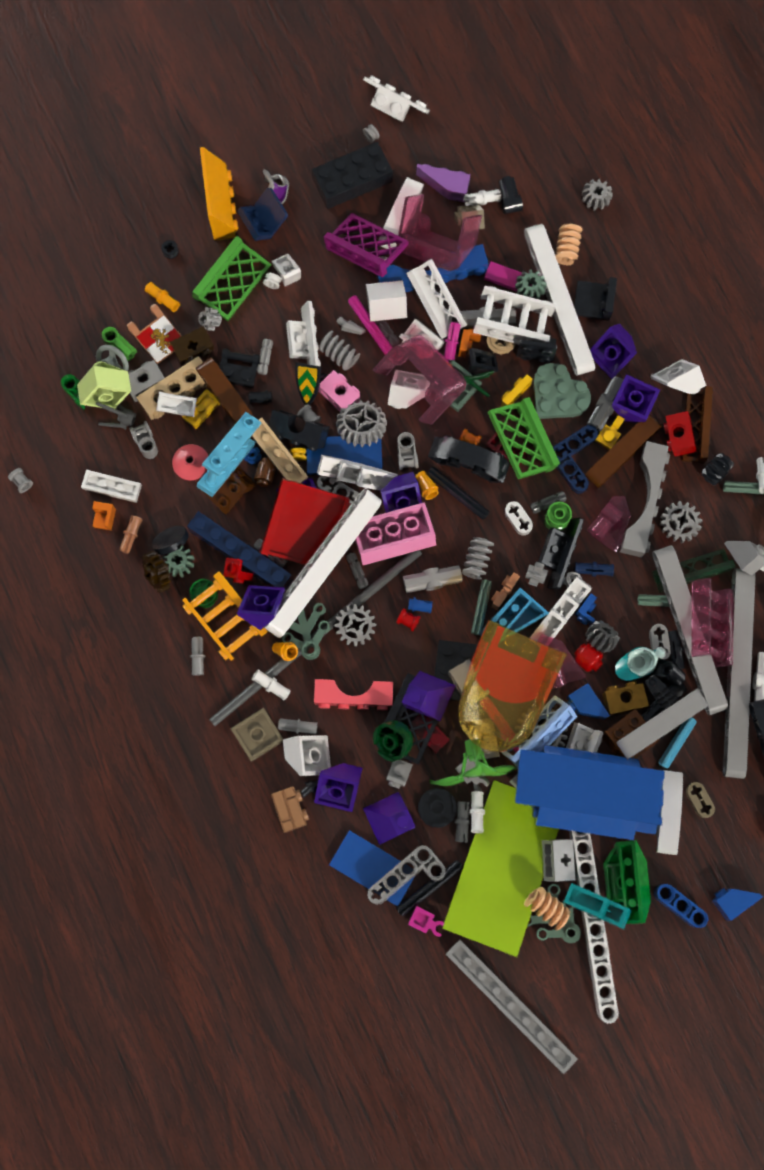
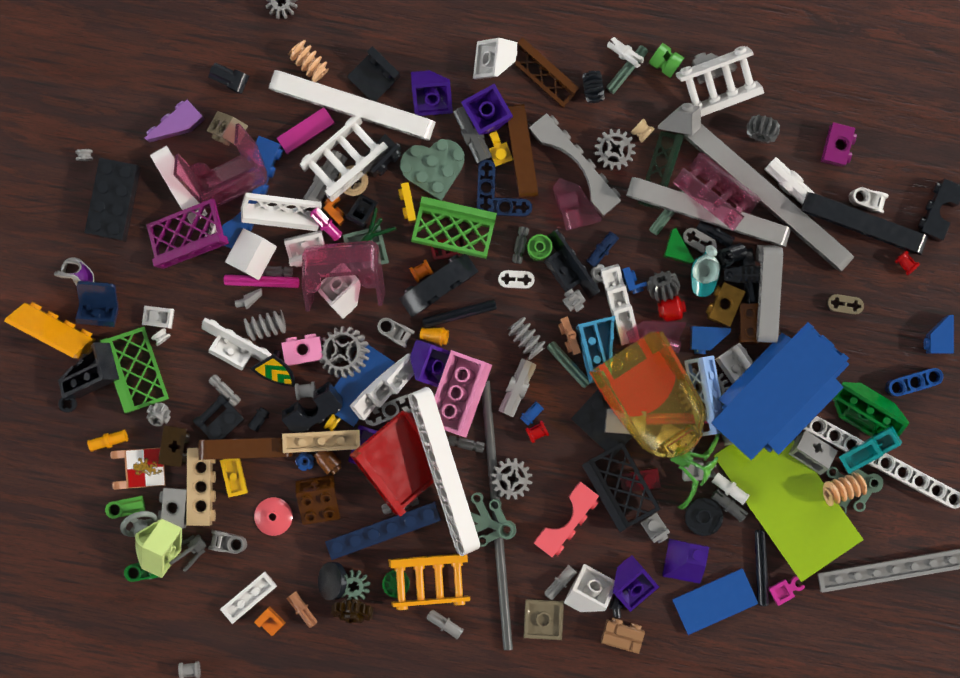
camera: 50 degrees left, 10 degrees up
(176, 404) = (217, 496): white tile -> none
(205, 244) = (90, 373): none -> black wedge
(228, 454) = (298, 485): medium azure fence -> none
(233, 570) = (397, 546): red bracket -> none
(260, 605) = (442, 545): dark purple slope -> none
(271, 684) = (512, 581): white pin -> none
(286, 650) = (492, 550): light orange cone -> none
(392, 102) = (66, 114): white bracket -> none
(393, 740) = (630, 516): dark green cylinder -> none
(404, 878) = (741, 584): light grey beam -> none
(428, 695) = (612, 461): dark purple slope -> none
(482, 197) = (214, 103): white pin -> none
(535, 280) = (320, 128): sand green gear -> none
(639, 627) = (677, 249): none -> green slope
(669, 832) = (838, 335): white slope -> none
(677, 742) = (790, 293): medium azure axle -> none
(680, 423) = (553, 94): red brick -> none
(712, 533) = (642, 130): none -> tan wheel

